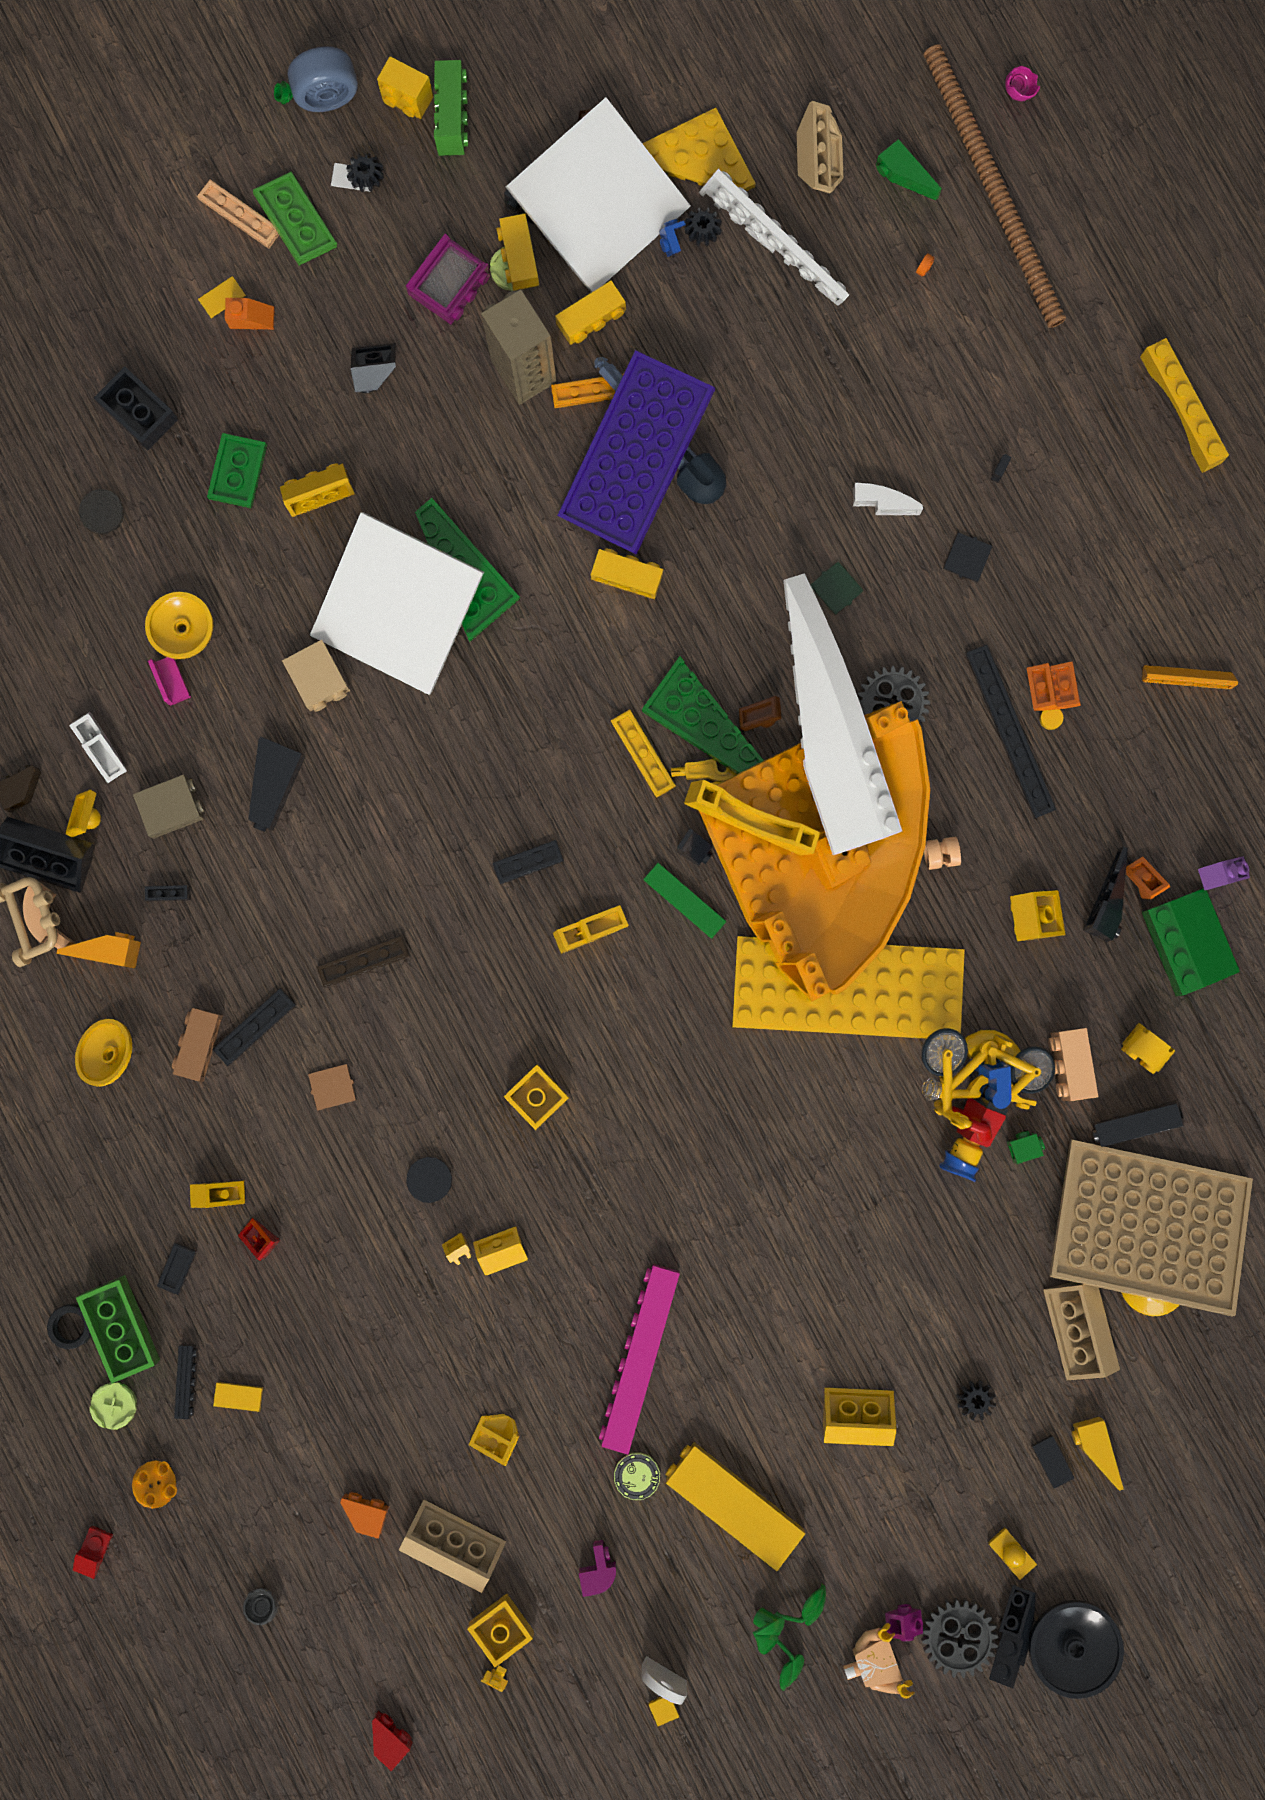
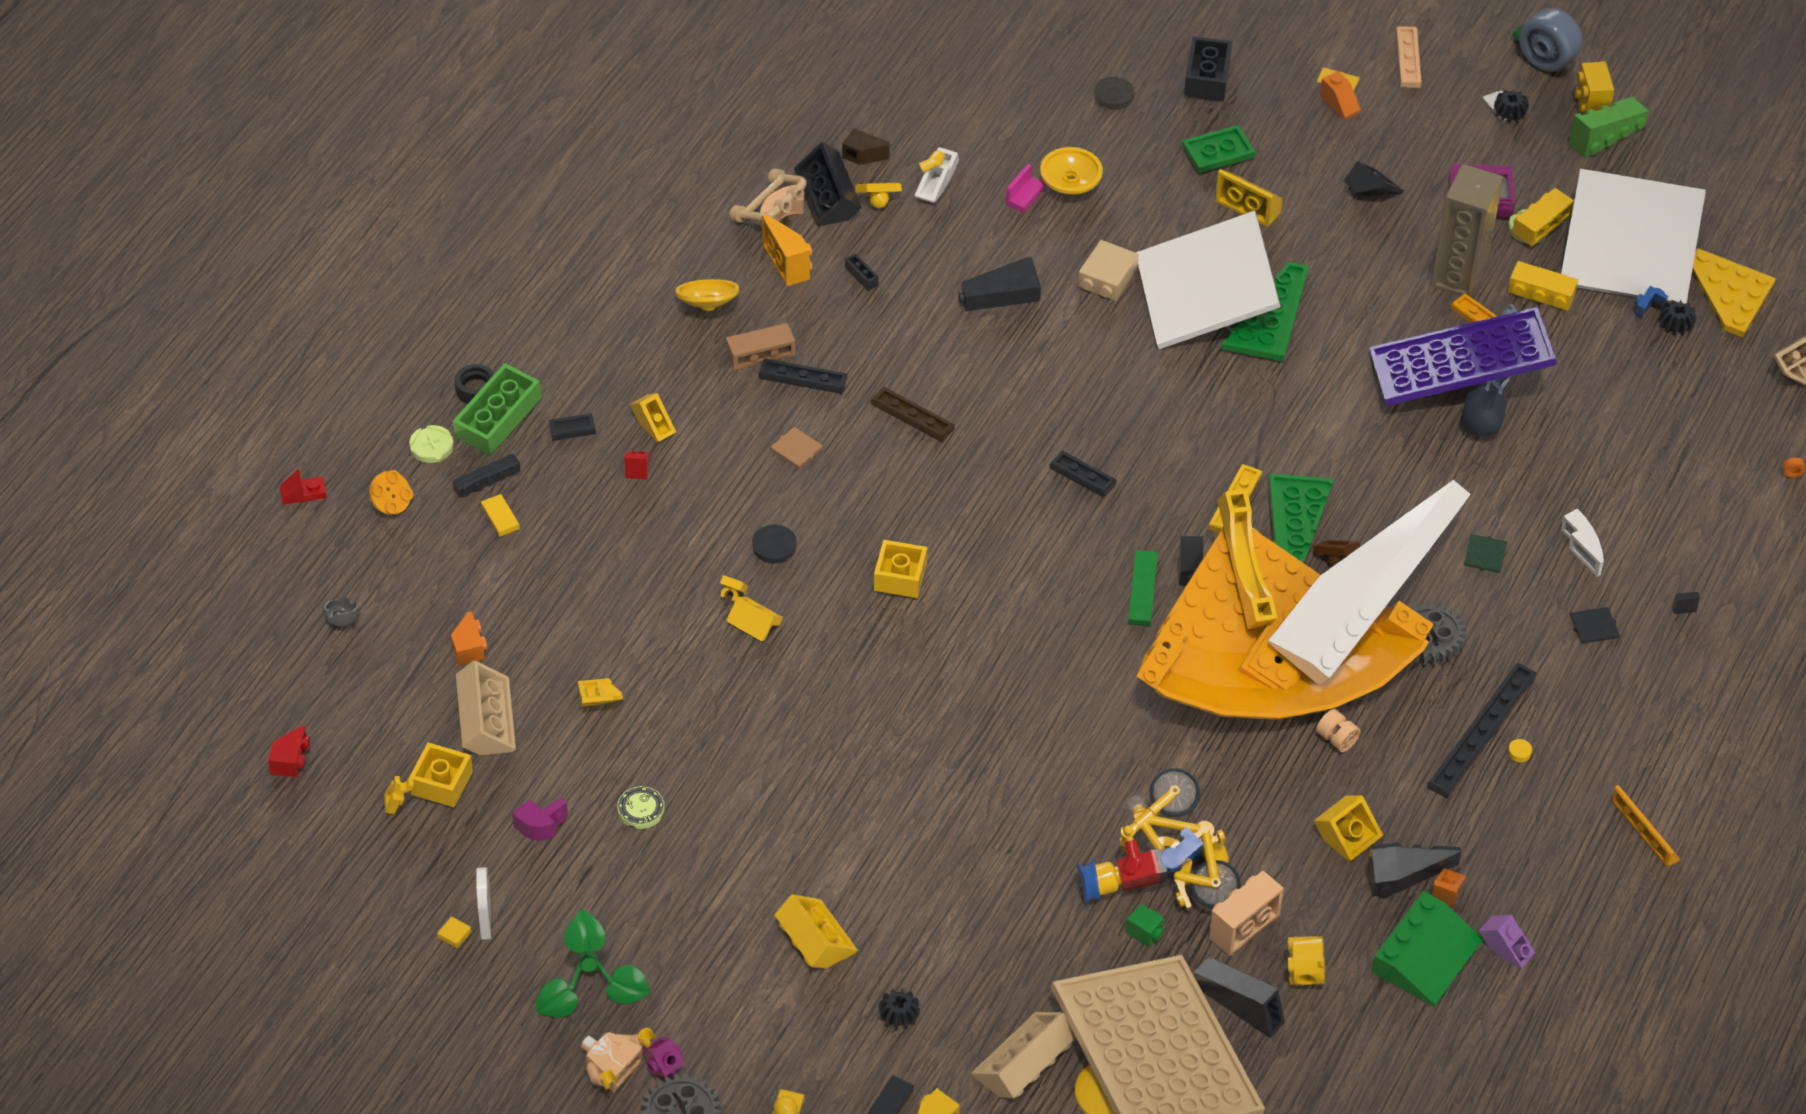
camera: 50 degrees right, 35 degrees down
(87, 744) = (934, 160): none -> yellow arm
(169, 806) = (928, 237): dark tan brick -> none
(295, 218) = (1436, 86): bright green tile -> none
(590, 929) = (1064, 537): yellow slope -> none
(627, 573) = (1366, 412): yellow brick -> none
(640, 1358) = (742, 753): dark pink brick -> none
(734, 1505) = (669, 885): yellow brick -> none
(769, 233) = (1713, 348): white wing -> none
(897, 995) = (1170, 735): yellow plate -> none
(1053, 686) = (1546, 735): orange slope -> none

